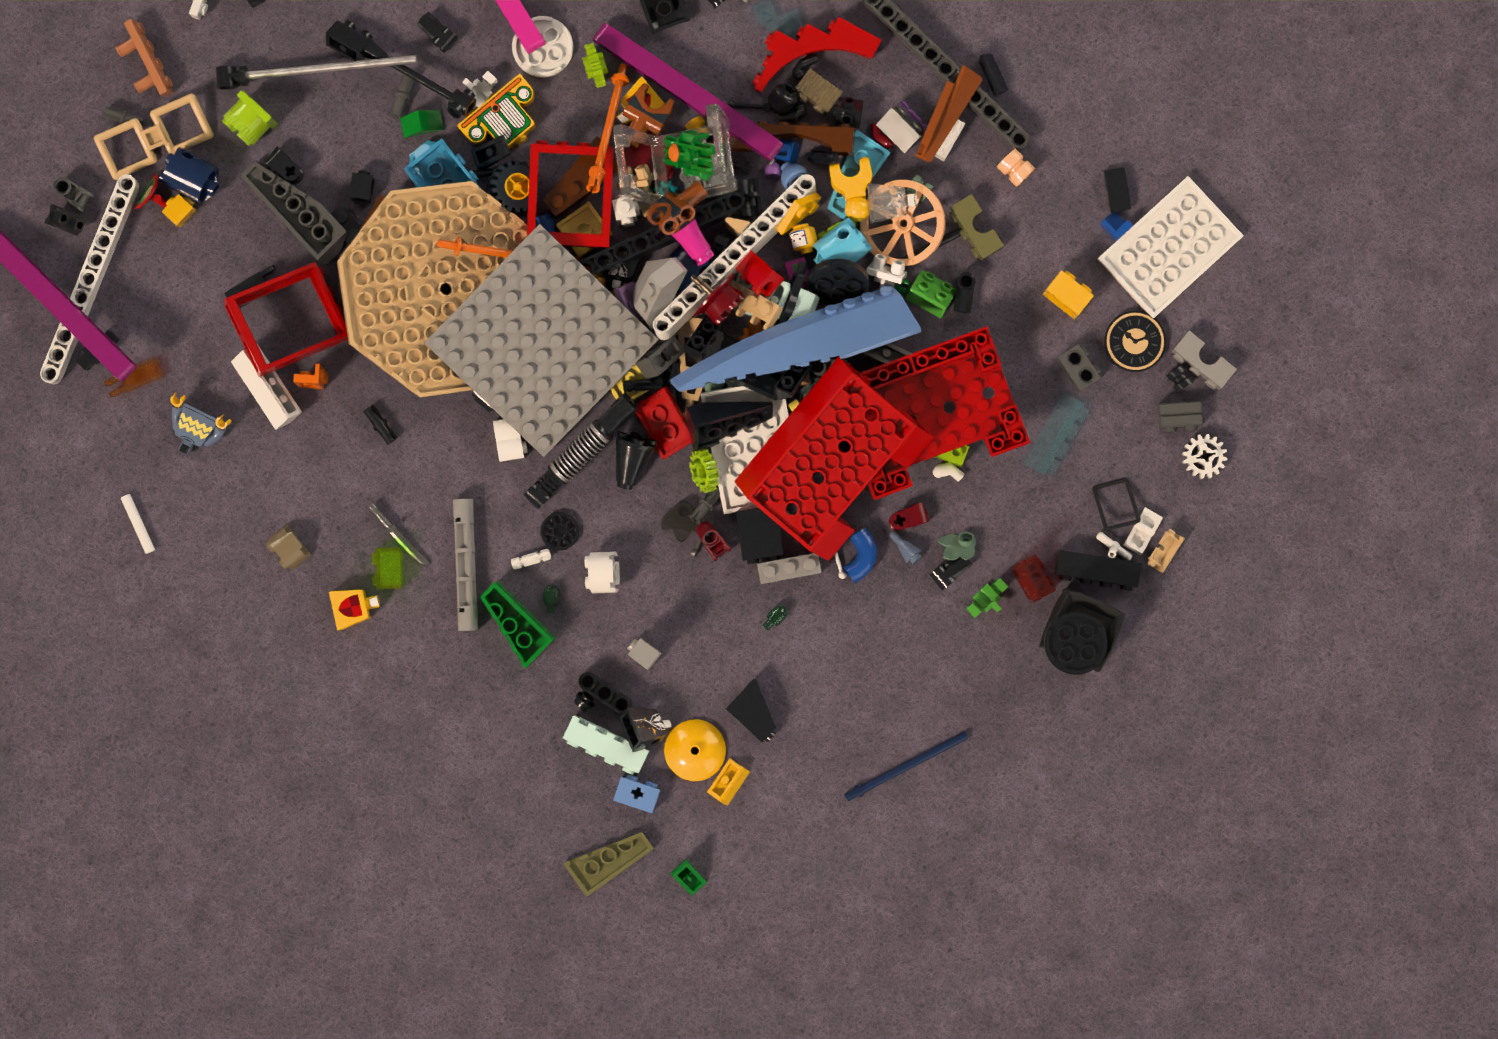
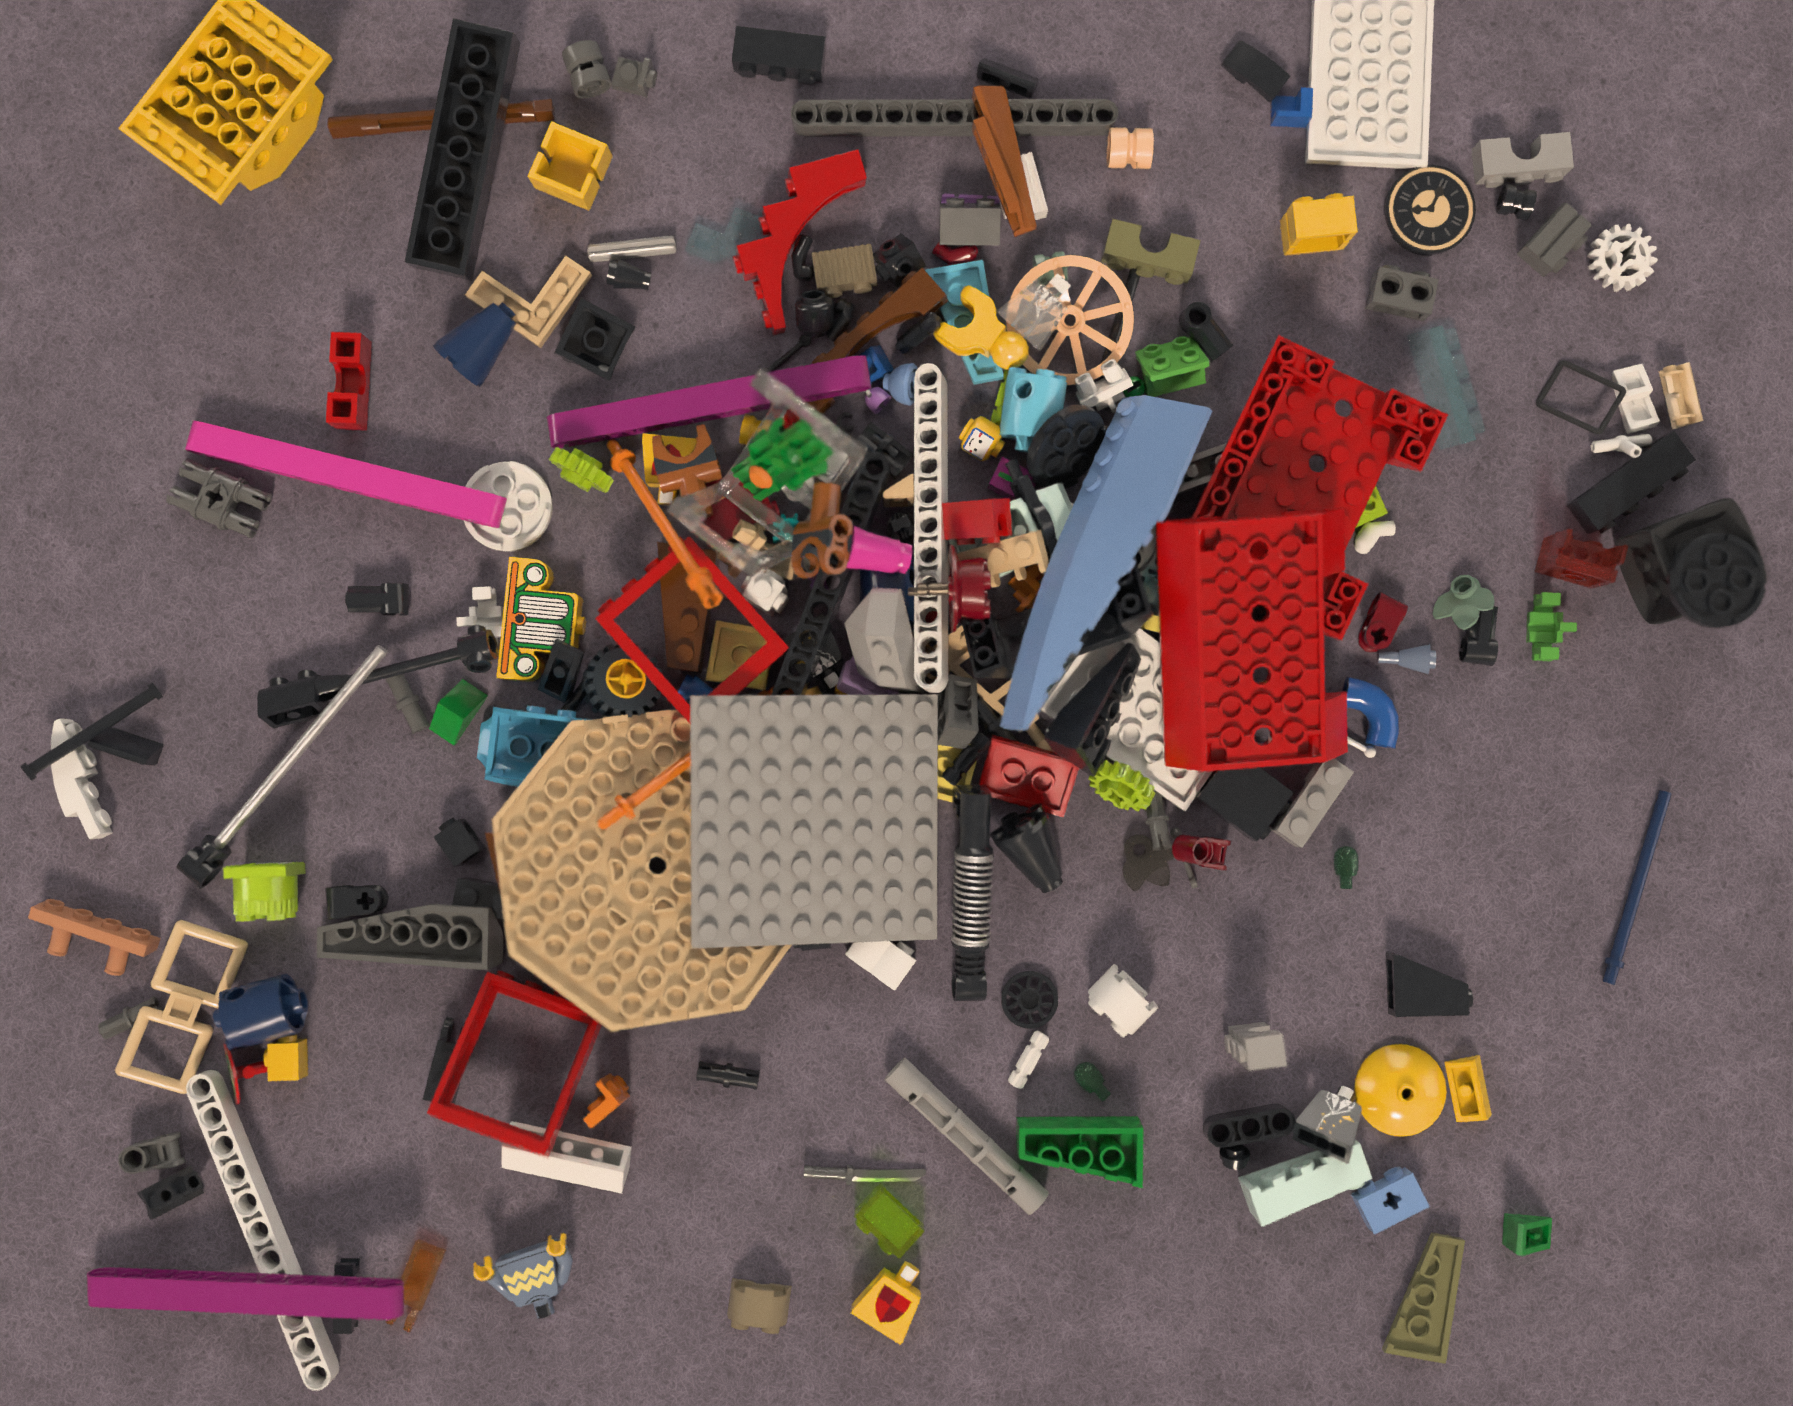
camera: 45 degrees left, 0 degrees up
(798, 211) = (949, 409): yellow wing -> none

